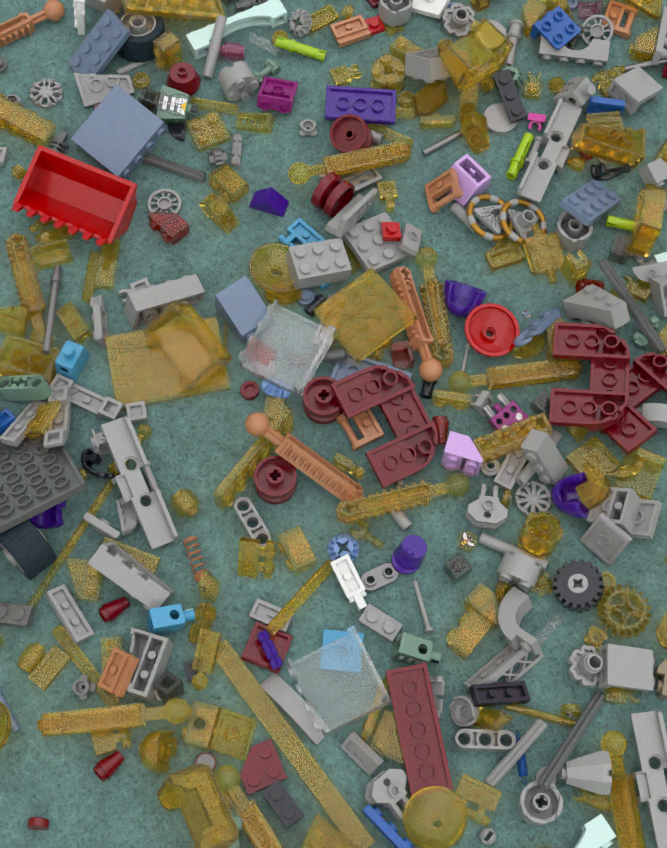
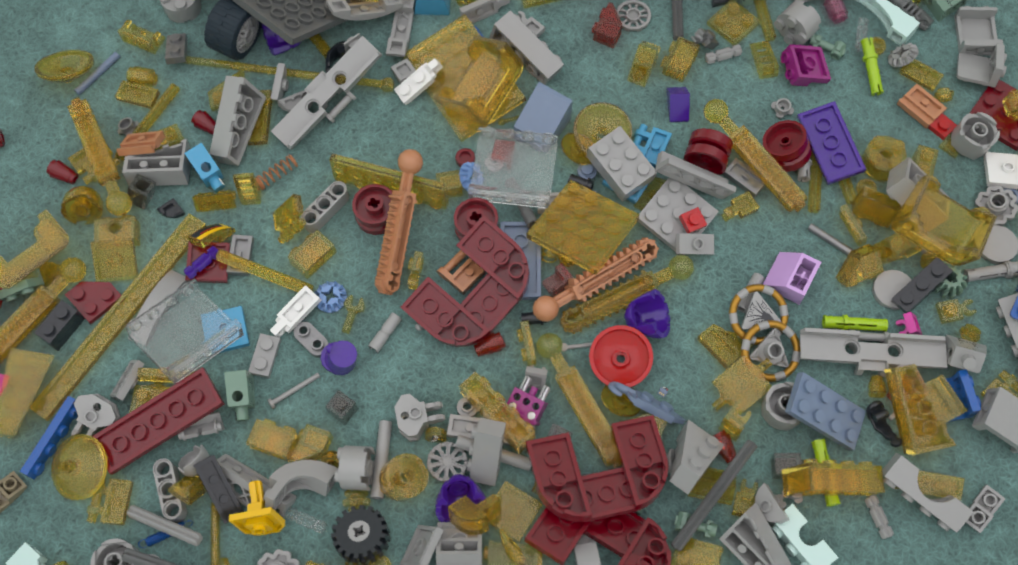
camera: 75 degrees right, 0 degrees up
(69, 614) = (190, 90): light grey plate -> none
(156, 402) = (418, 81): none -> white hinge
(185, 502) = (326, 142): clear yellow head -> none
(205, 657) = (179, 210): clear yellow plate -> none
(207, 758) = (83, 250): flat silver tile -> none
(242, 634) = (206, 235): none -> clear yellow slope
(342, 75) = (863, 116): clear yellow plate -> none
(439, 187) = (772, 252): nougat plate -> none
(456, 485) = (432, 378): clear yellow gear -> none
(461, 455) = (462, 365): lavender slope -> none
(467, 541) = (377, 410): tile -> none
(484, 833) = (77, 531): light grey hinge -> none
(541, 664) = (257, 519): none -> yellow piece

